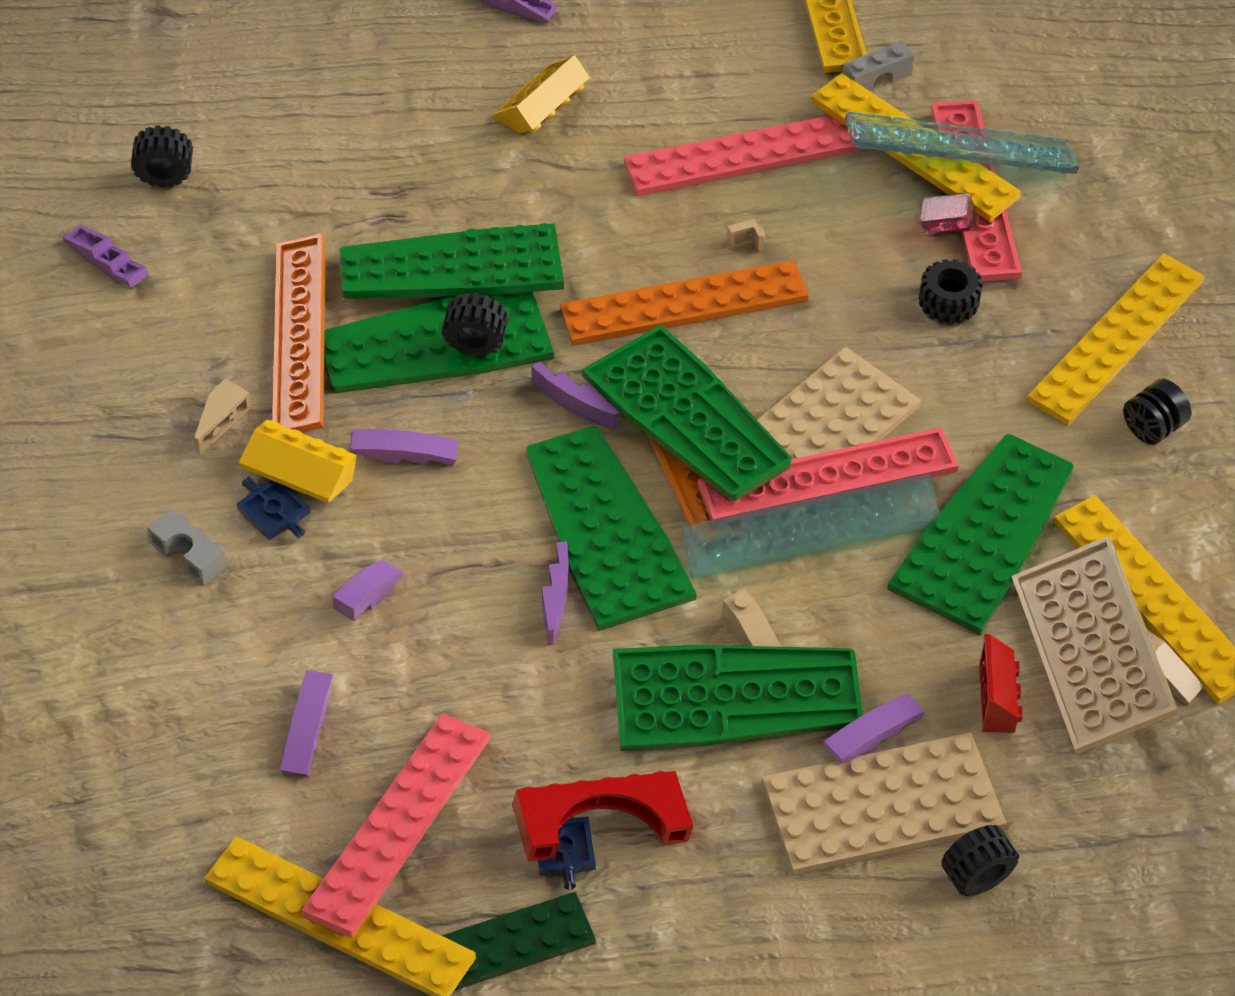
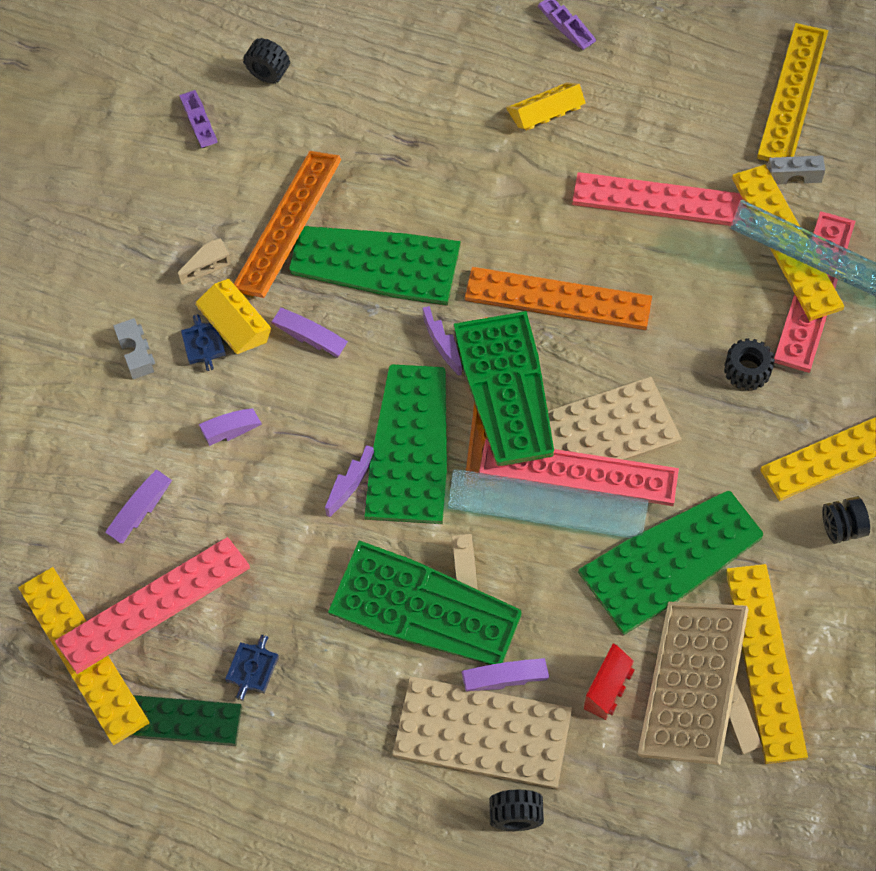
camera: 30 degrees right, 10 degrees up
(455, 264) = (418, 211): green wing -> none
(475, 324) = (396, 263): black tyre -> none
(650, 797) = (248, 639): red arch -> none
(745, 233) = (628, 262): tan bracket -> none
(948, 214) = (780, 303): clear pink brick -> none

